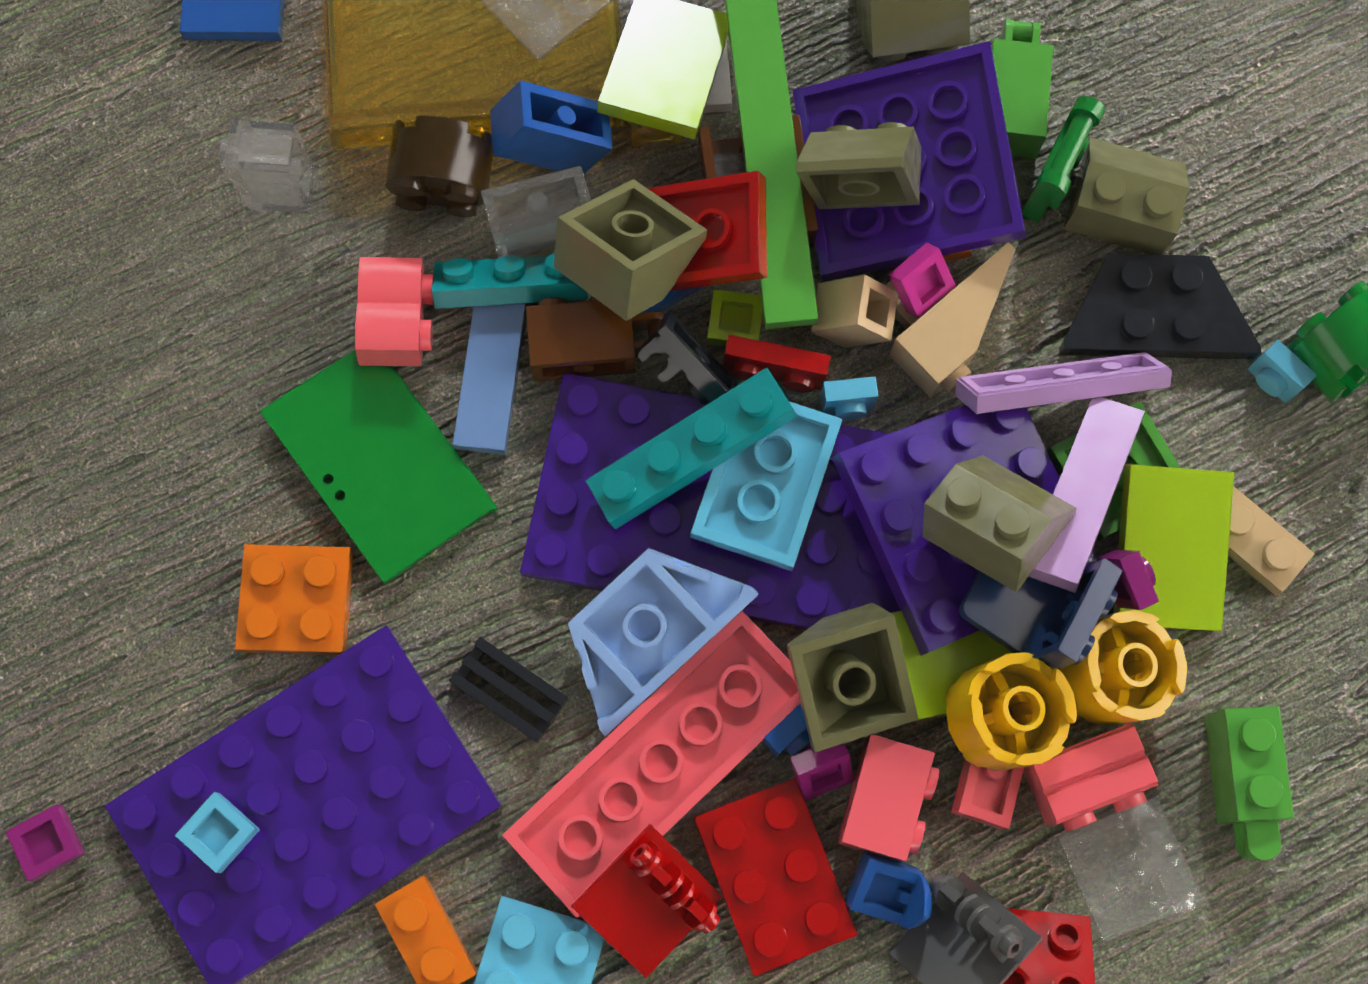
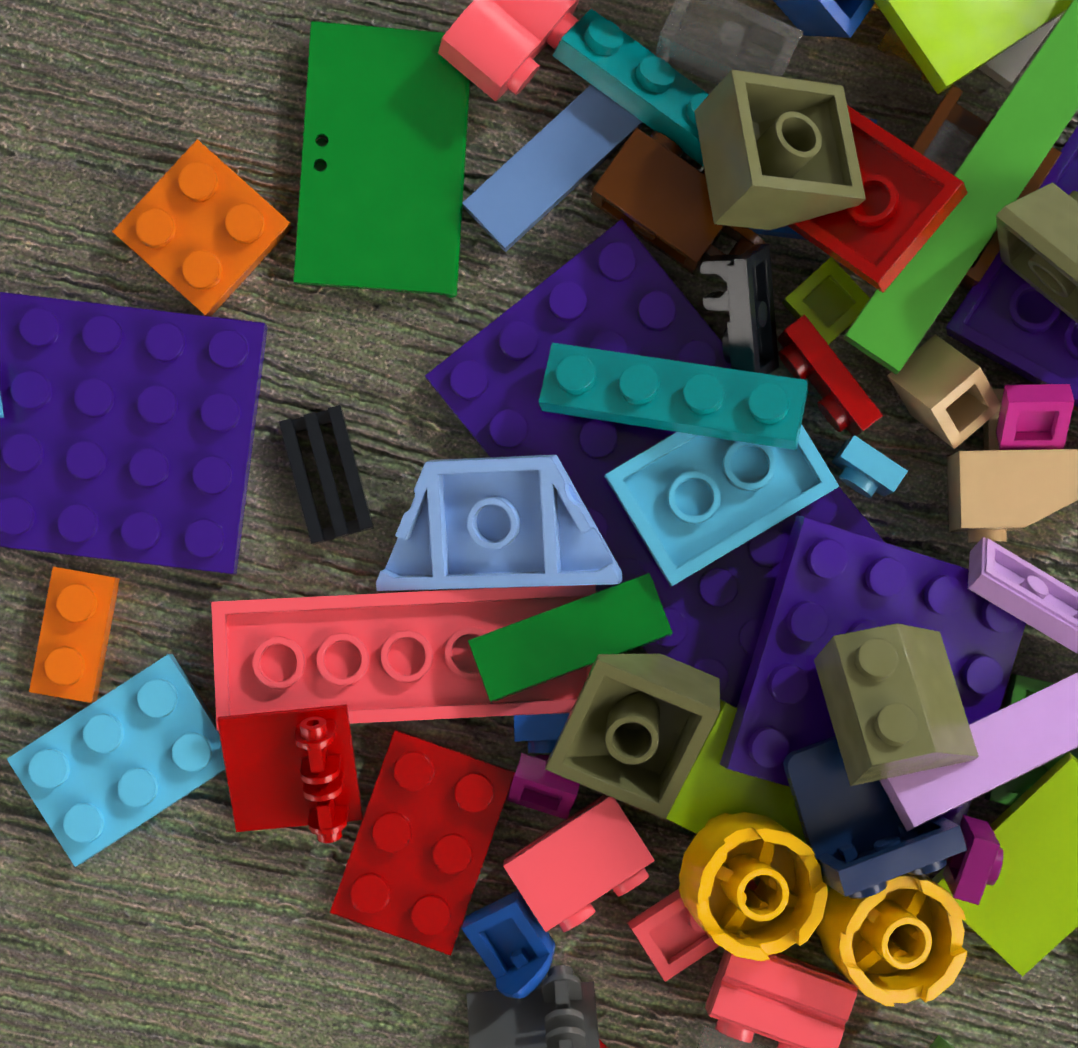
camera: 40 degrees right, 10 degrees up
(755, 658) = (570, 637): none -> green tile

